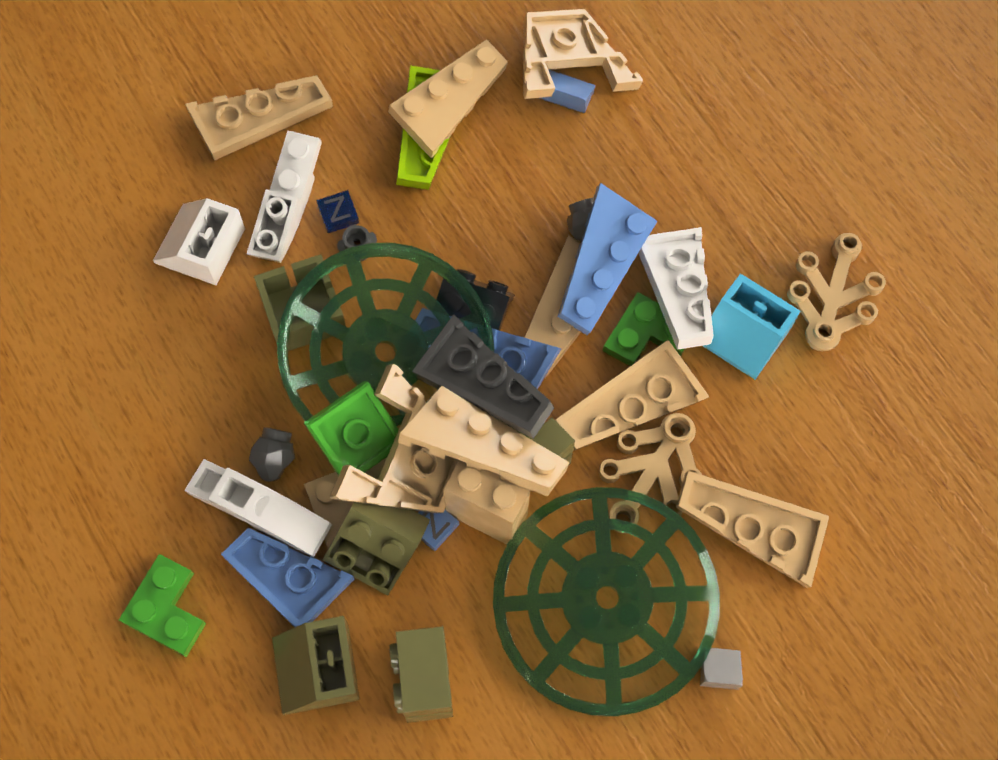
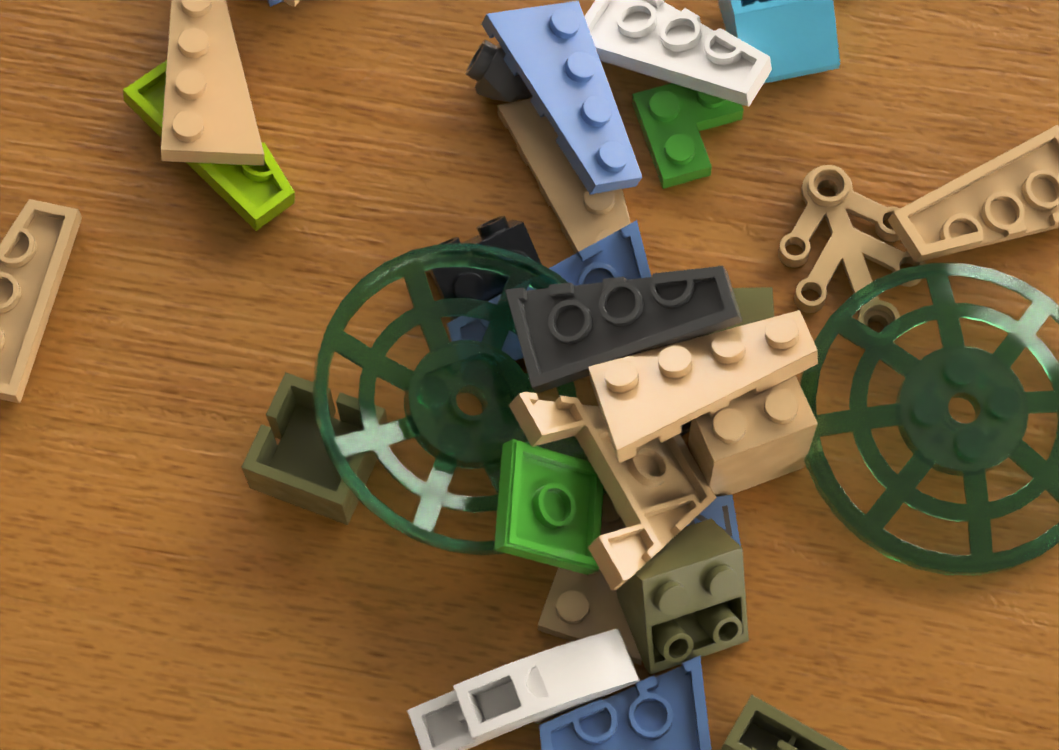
camera: 45 degrees left, 0 degrees up
(201, 240) = (116, 498): white slope -> none
(272, 453) = (470, 628): dark grey rock -> none
(286, 199) = (157, 360): white slope -> none
(337, 211) = (226, 320): clear blue tile -> none
(356, 233) = (283, 317): dark grey plate -> none
(423, 672) = (887, 666): olive piece -> none
(637, 395) = (753, 191): tan wing -> none

